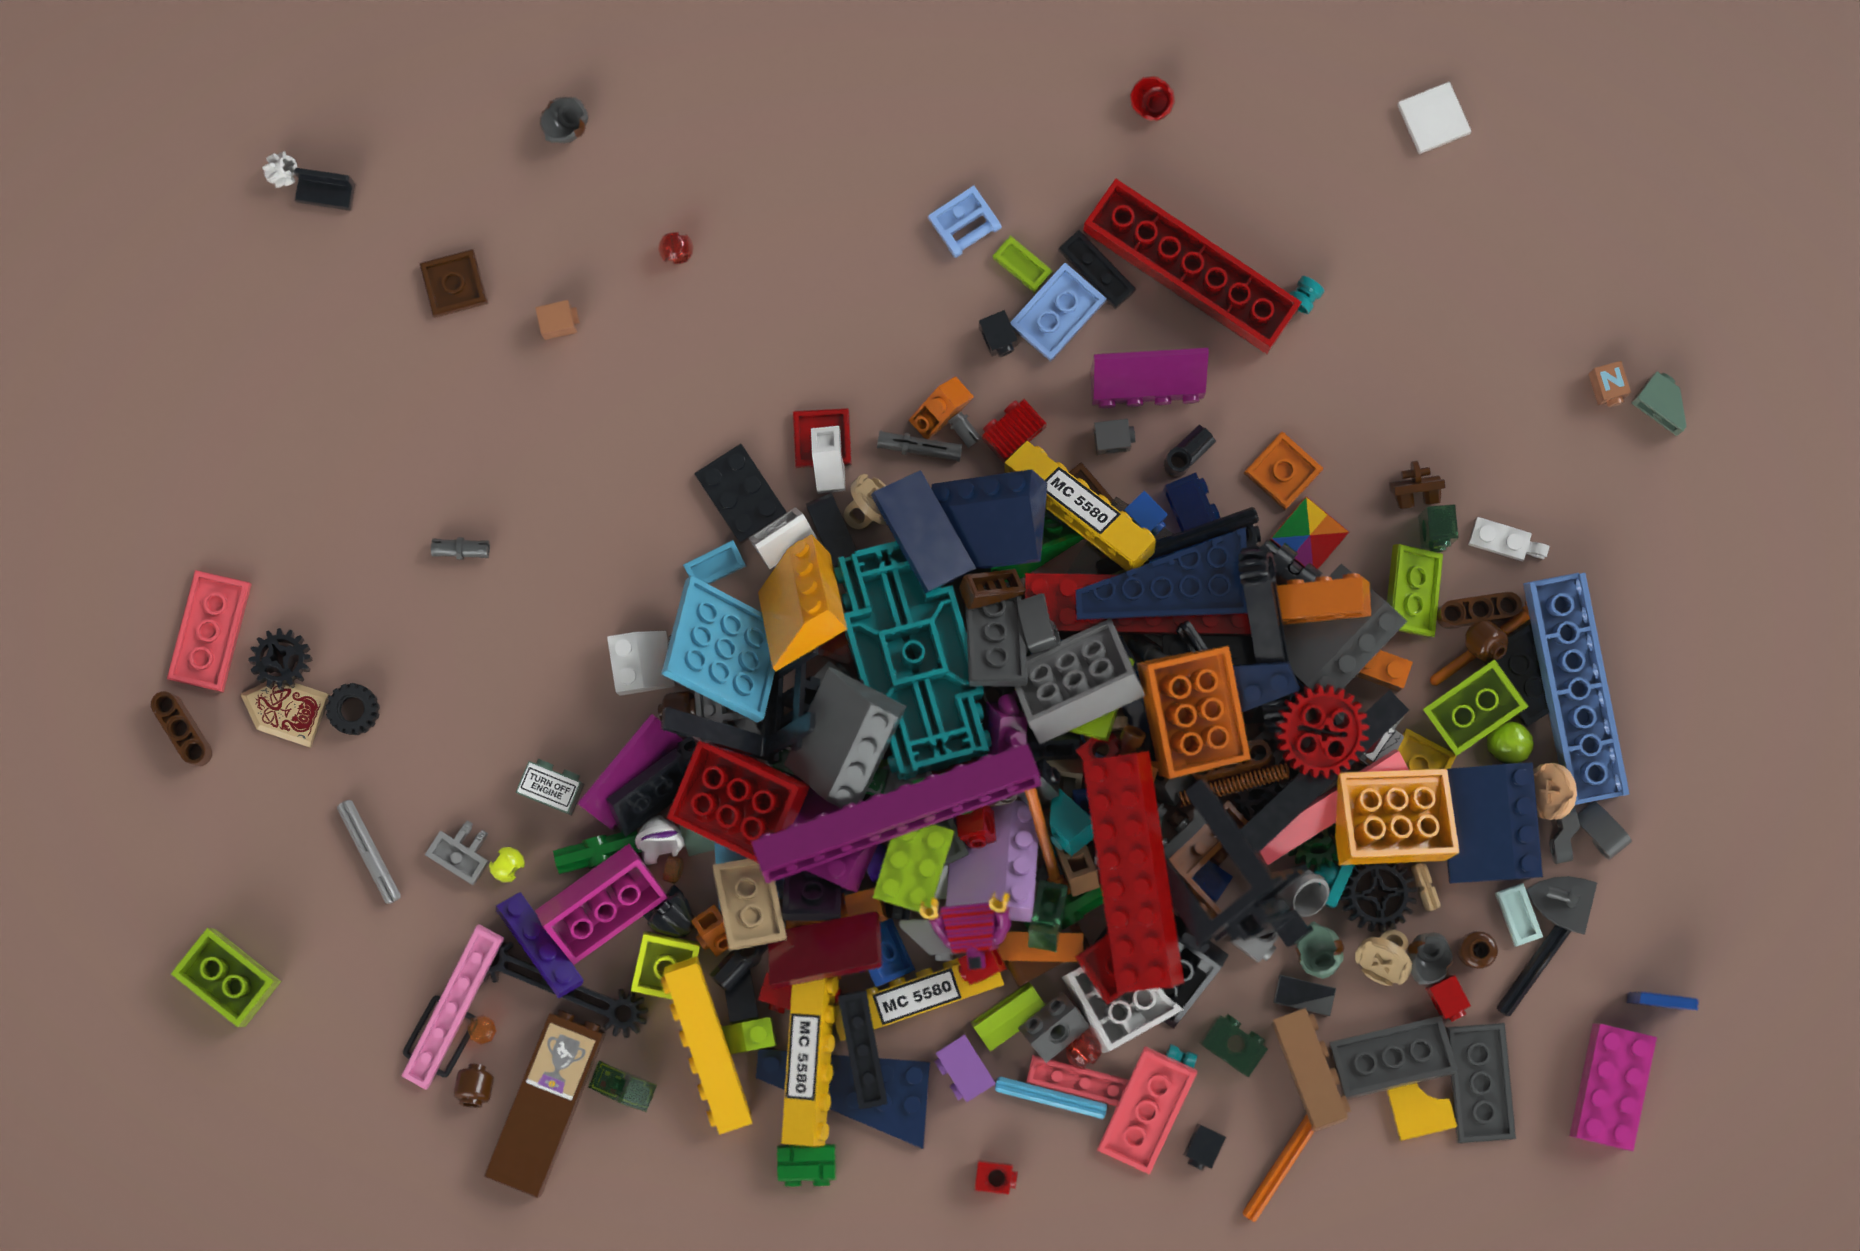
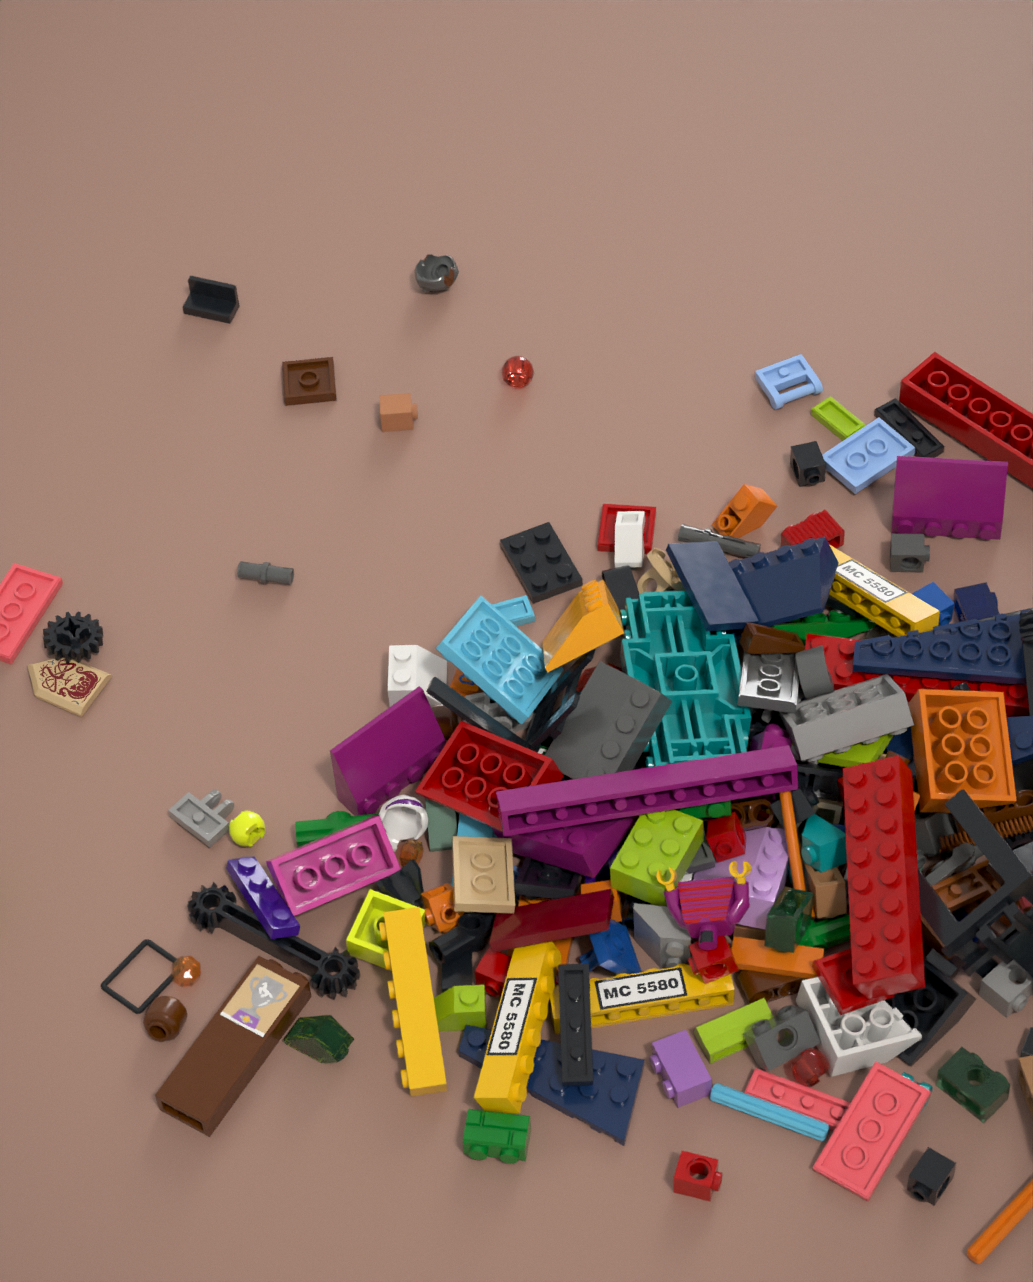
camera: 10 degrees right, 30 degrees down
(280, 169) = (175, 282): white gear -> none
(335, 706) = (130, 673): black tyre -> none
(368, 851) = (114, 806): light grey axle -> none
(452, 1007) = (161, 941): bright pink tile -> none
(550, 787) = (303, 770): brick -> none
(651, 789) = (397, 771): black tile -> none
(780, 535) = (565, 584): white slope -> none
(964, 429) = (761, 529): dark grey pin -> none
(1152, 98) = (976, 308): red hair -> none
(1189, 450) = (982, 570): black piece -> none

